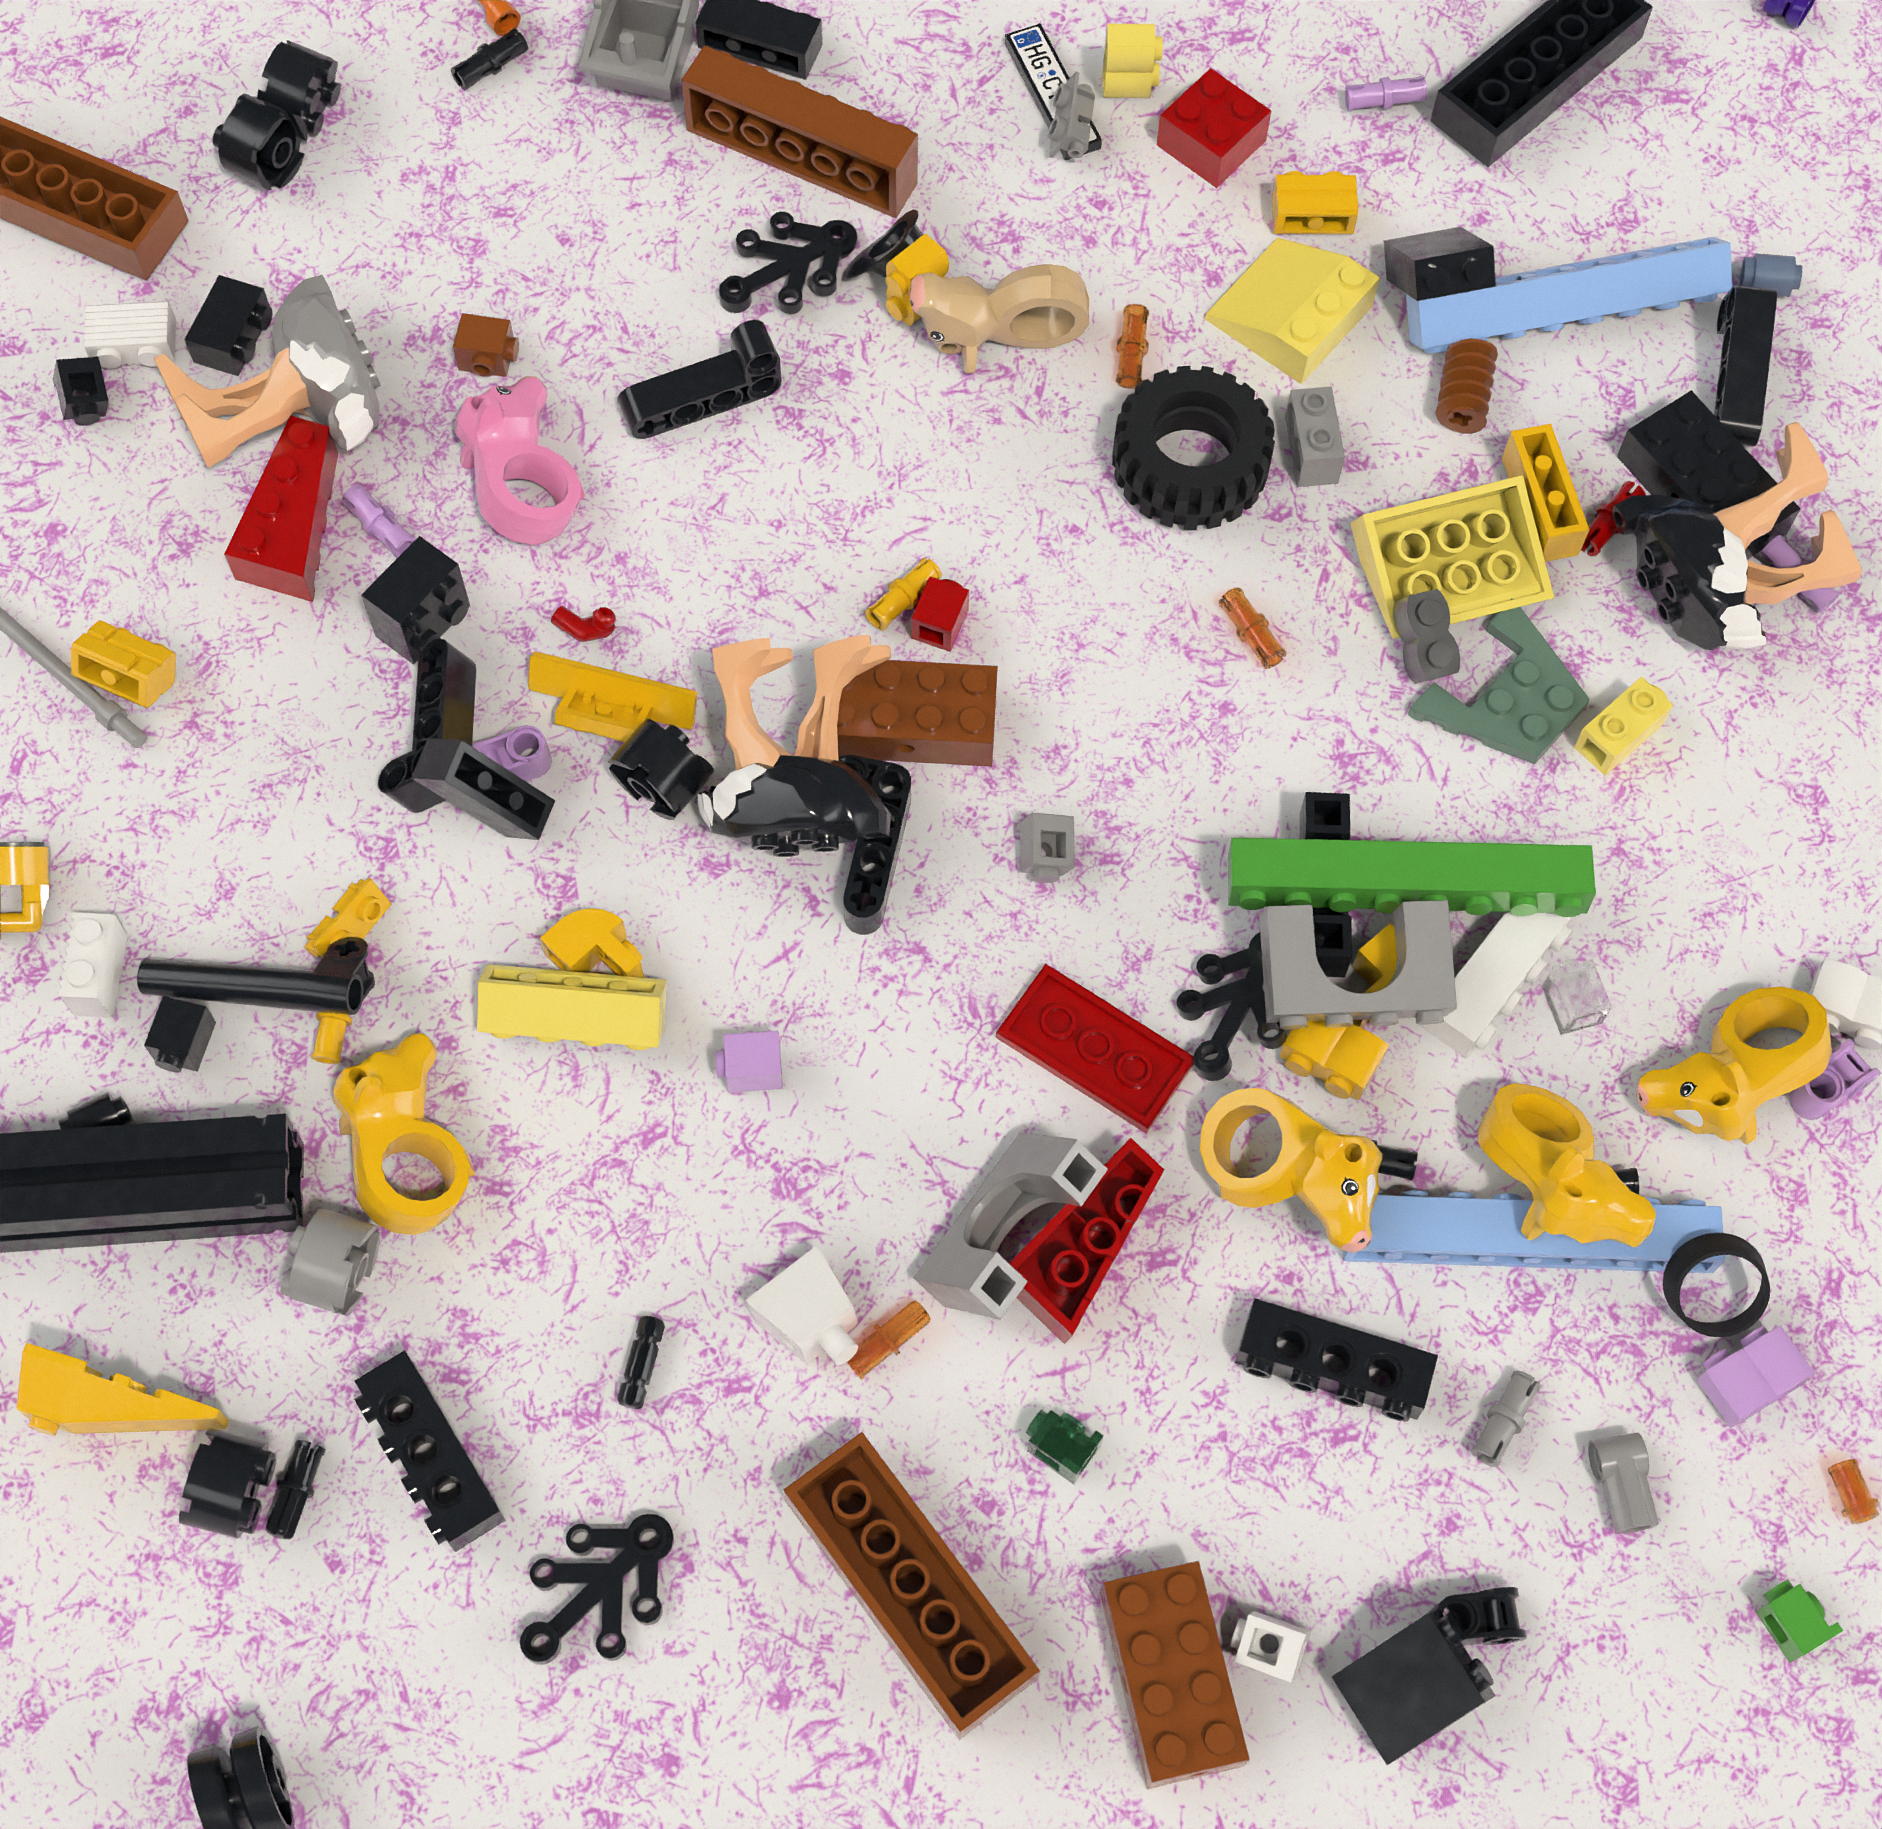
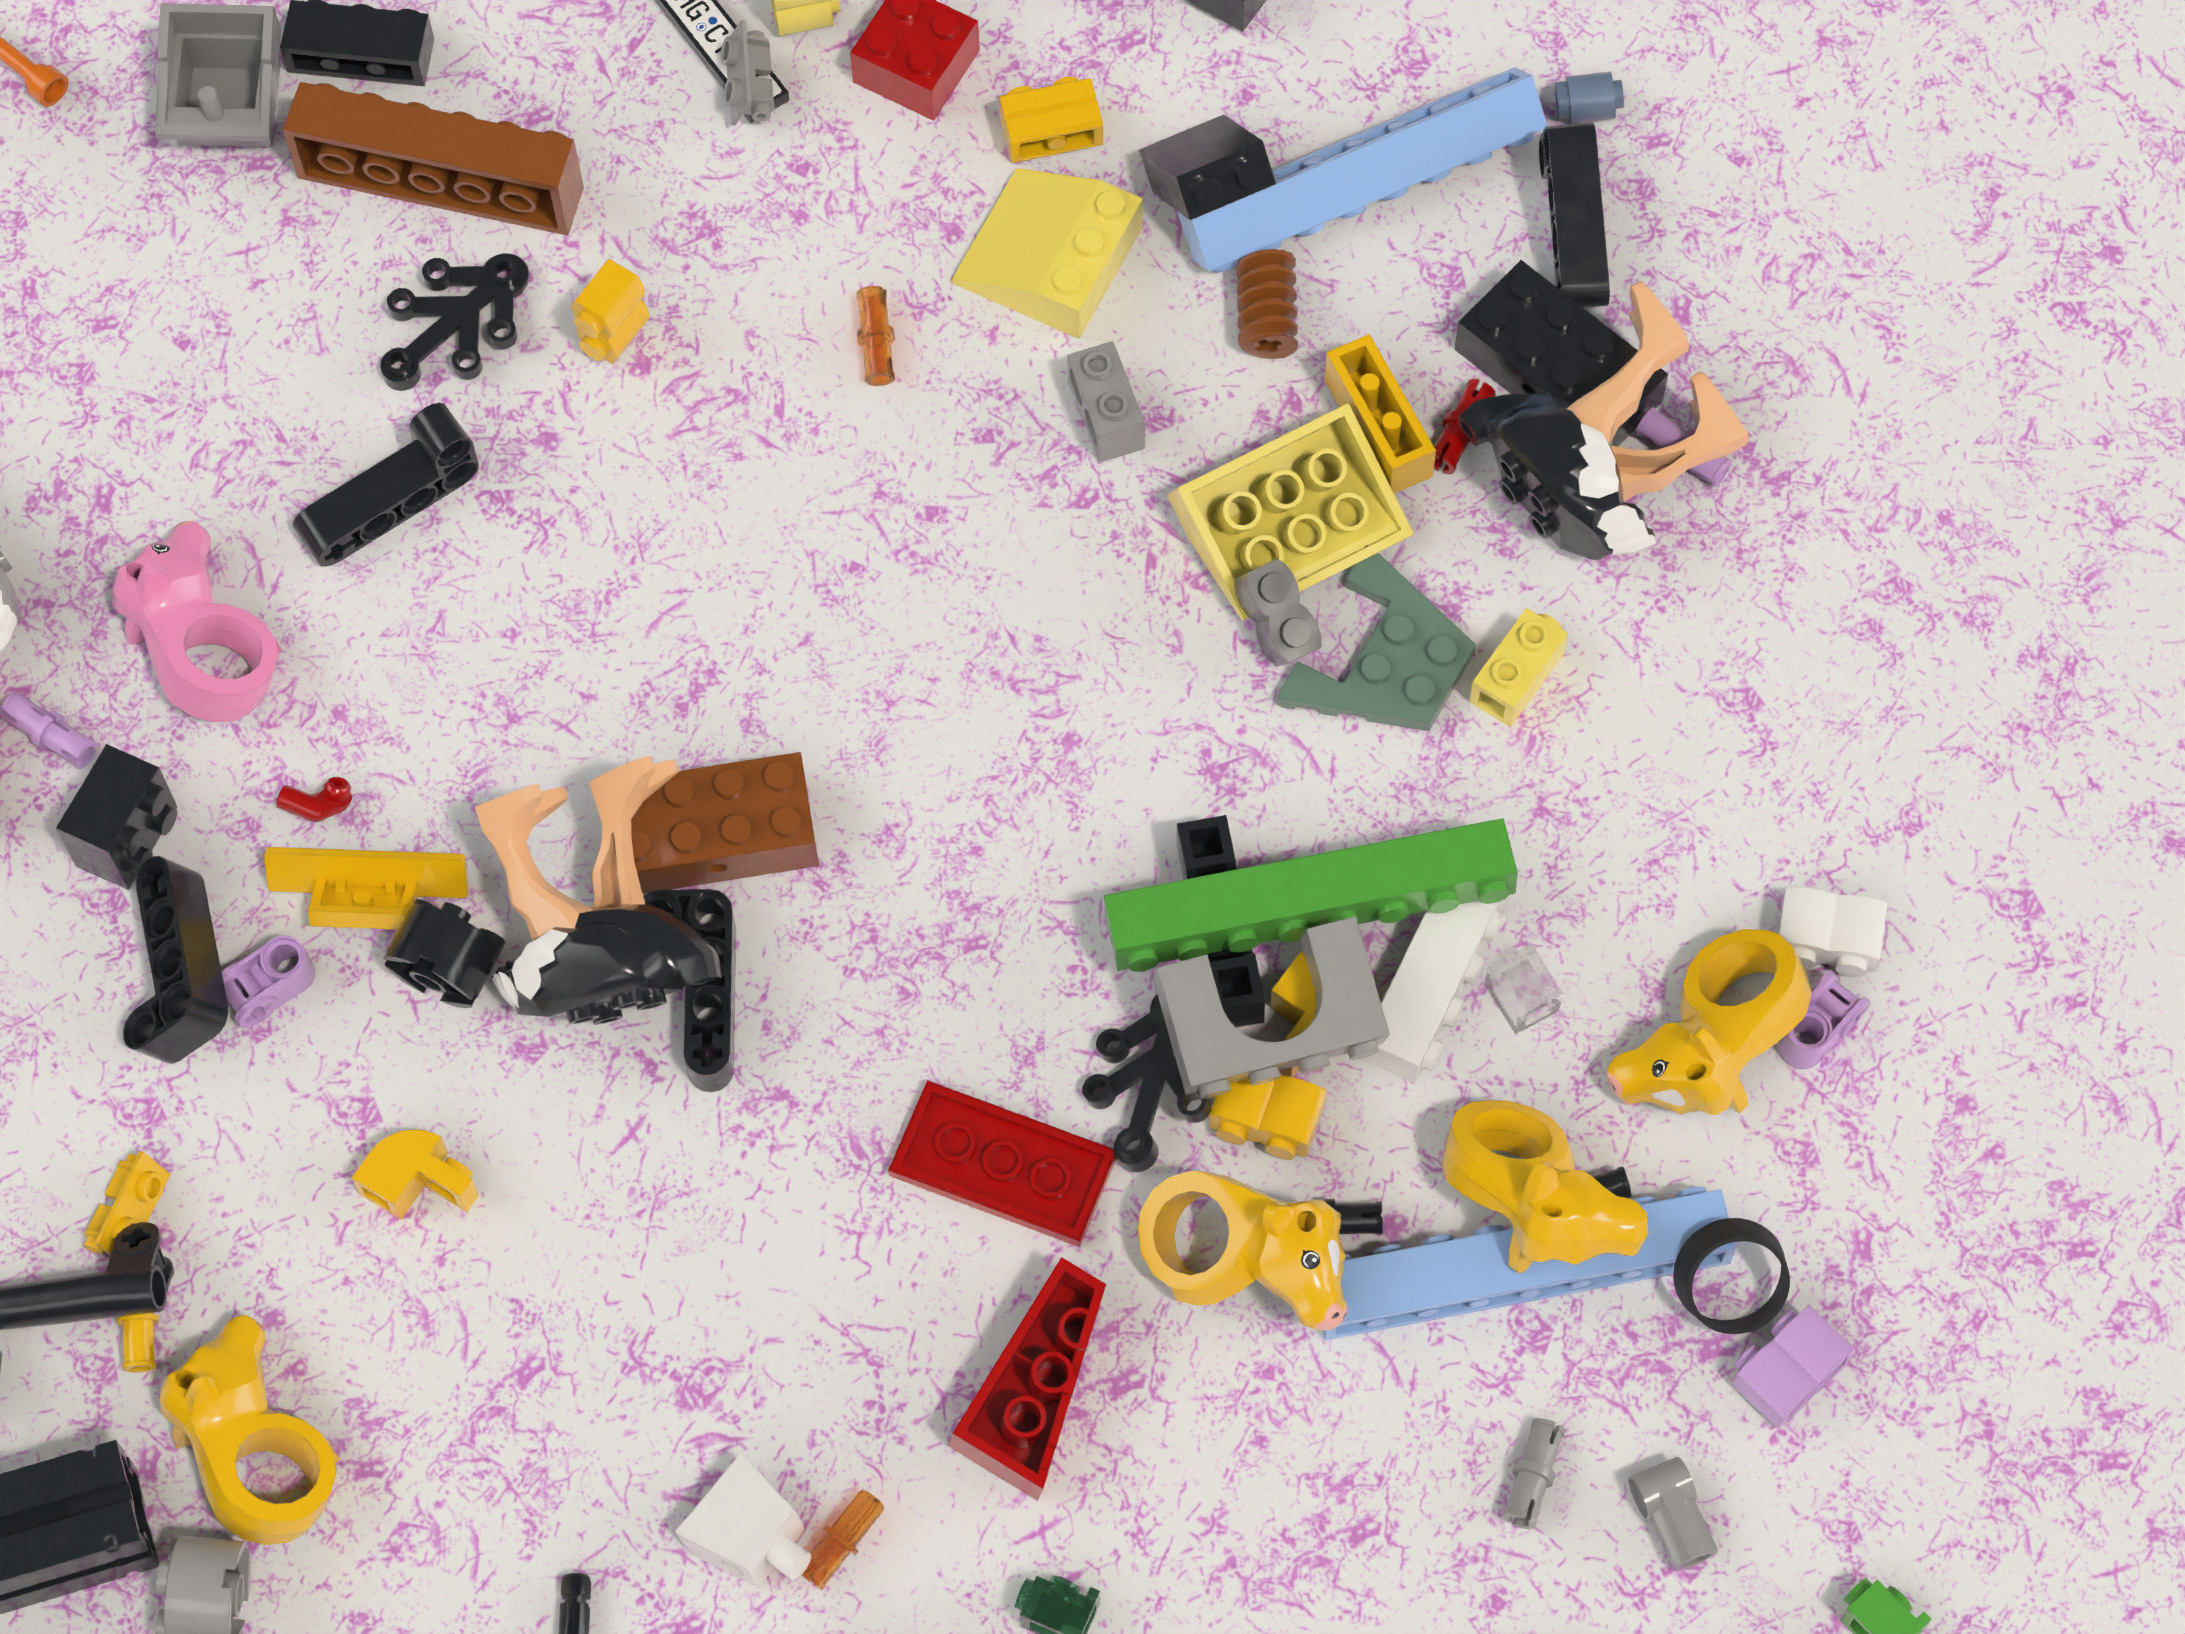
camera: 10 degrees left, 0 degrees up
(483, 788) = (249, 1022): black brick -> none
(485, 345) = (123, 493): dark orange brick -> none
(489, 59) = (43, 139): black pin -> none
(571, 1006) = (405, 1247): light yellow brick -> none
(750, 1061) = (621, 1264): lavender brick -> none
(885, 248) = (566, 278): black piece -> none
(902, 594) = (675, 687): yellow pin -> none
(940, 613) = (722, 701): red brick -> none
(1026, 309) = (739, 322): tan animal -> none
(1034, 1170) = (963, 1317): light grey arch -> none
(1055, 837) = (909, 934): light grey brick -> none
(1199, 403) = (960, 391): black tyre -> none
(1252, 628) = (1080, 642): clear orange pin -> none
(1407, 1366) = (1361, 1435): black brick -> none
(1853, 1492) = (1921, 1469): clear orange pin -> none

